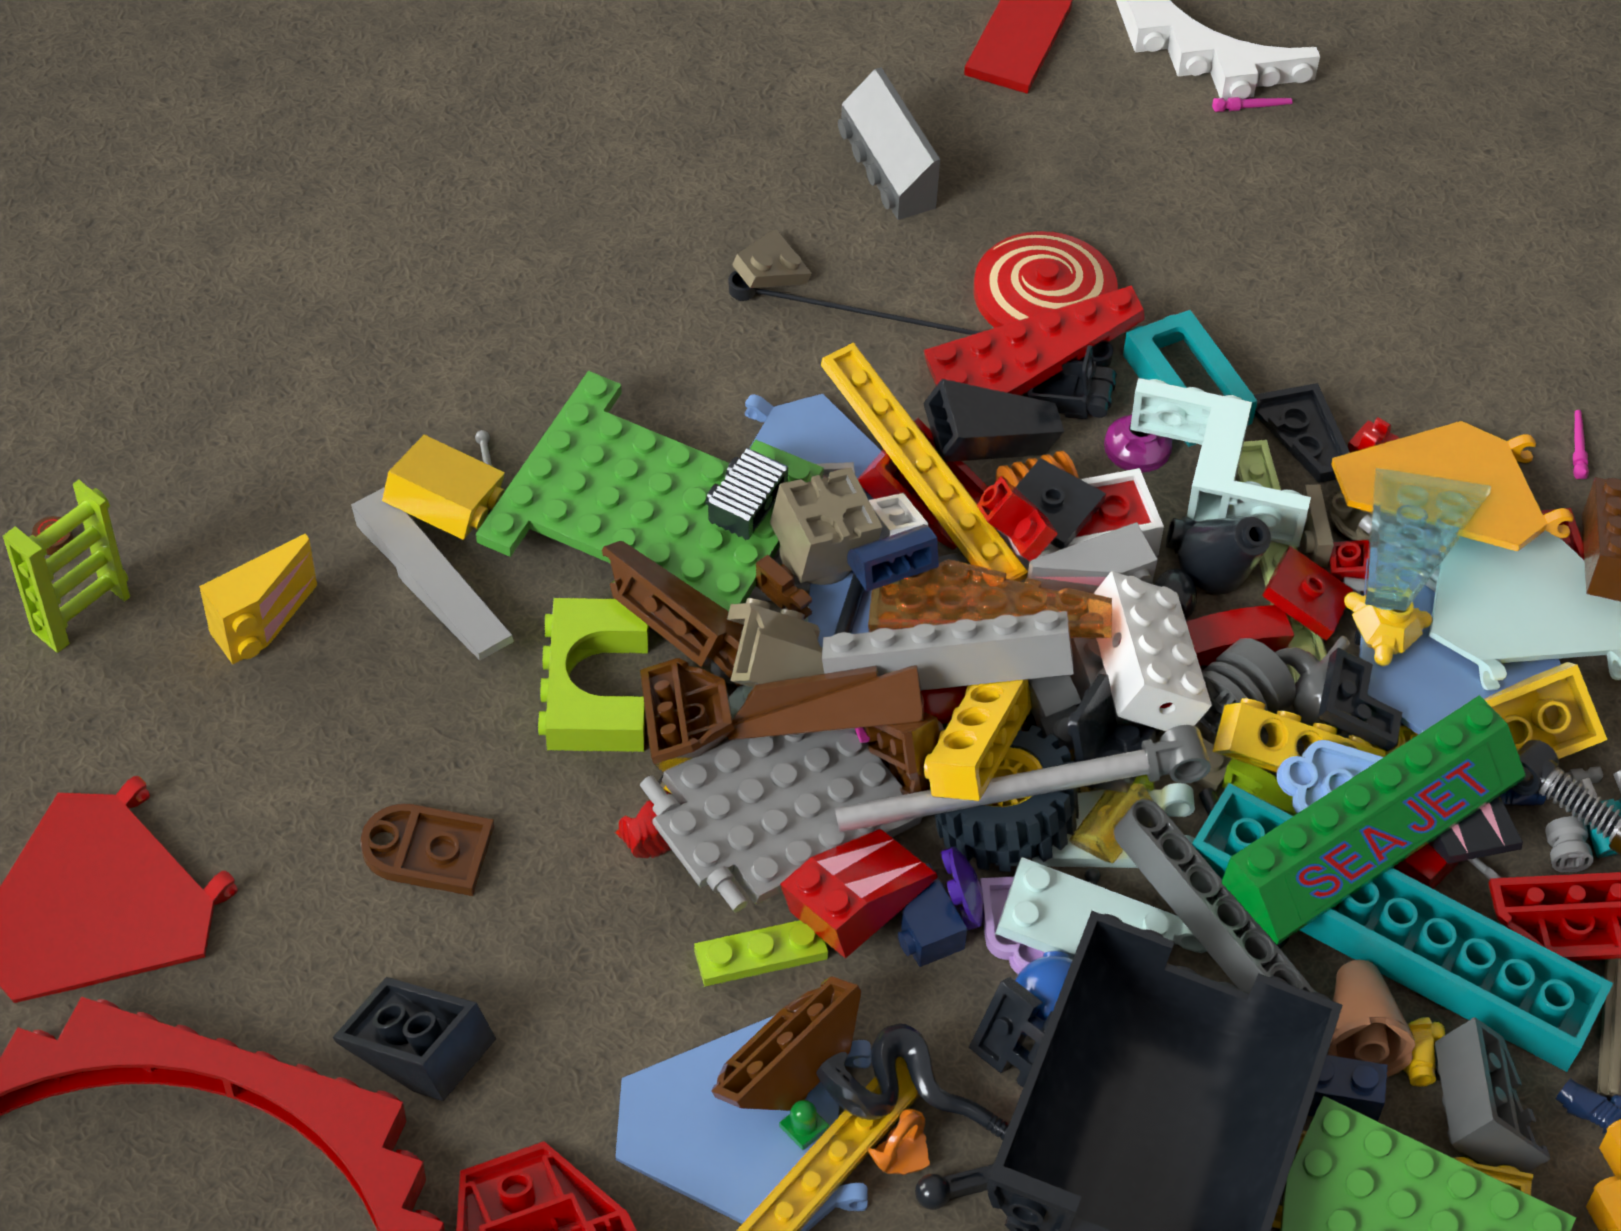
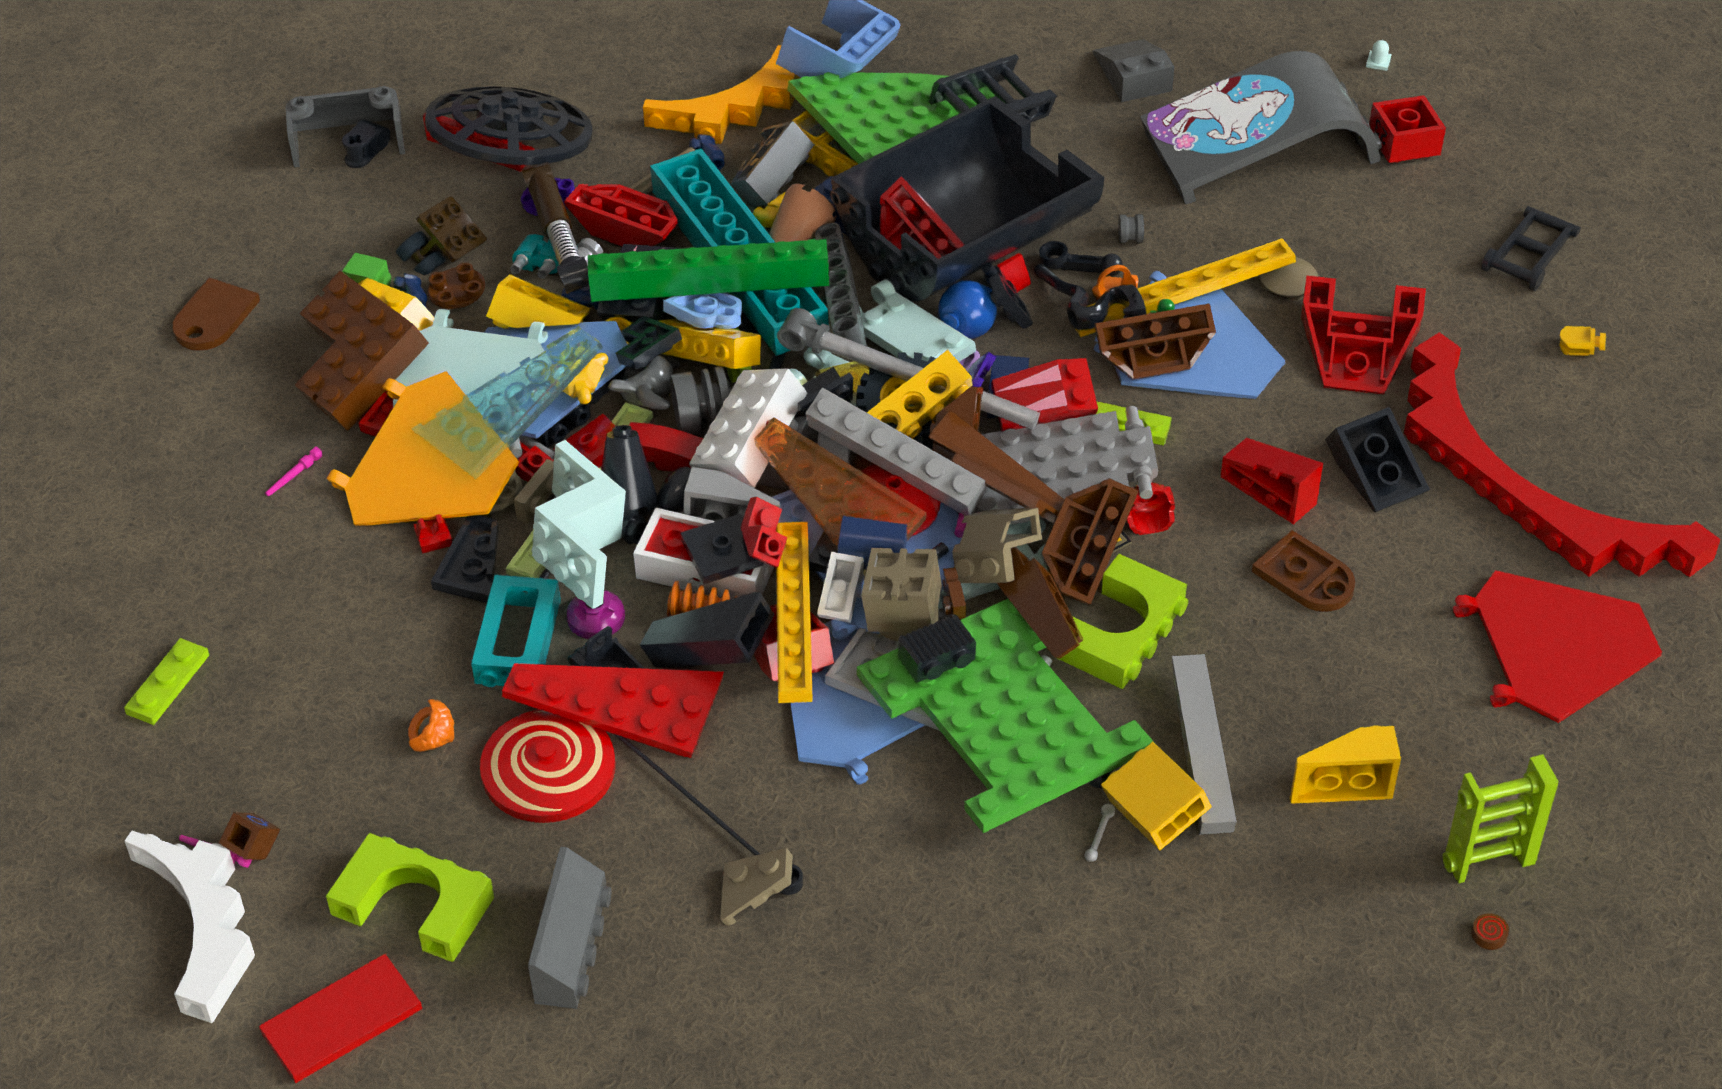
camera: 145 degrees left, 5 degrees down
(527, 935) = (1274, 477): none -> red wedge
(1014, 147) = (386, 864): none -> lime arch
(1170, 257) = (437, 732): none -> orange piece
(1182, 1065) = (909, 213): none -> red wedge
(1224, 102) = (249, 836): none -> reddish brown brick
(1451, 203) = (166, 681): none -> lime plate

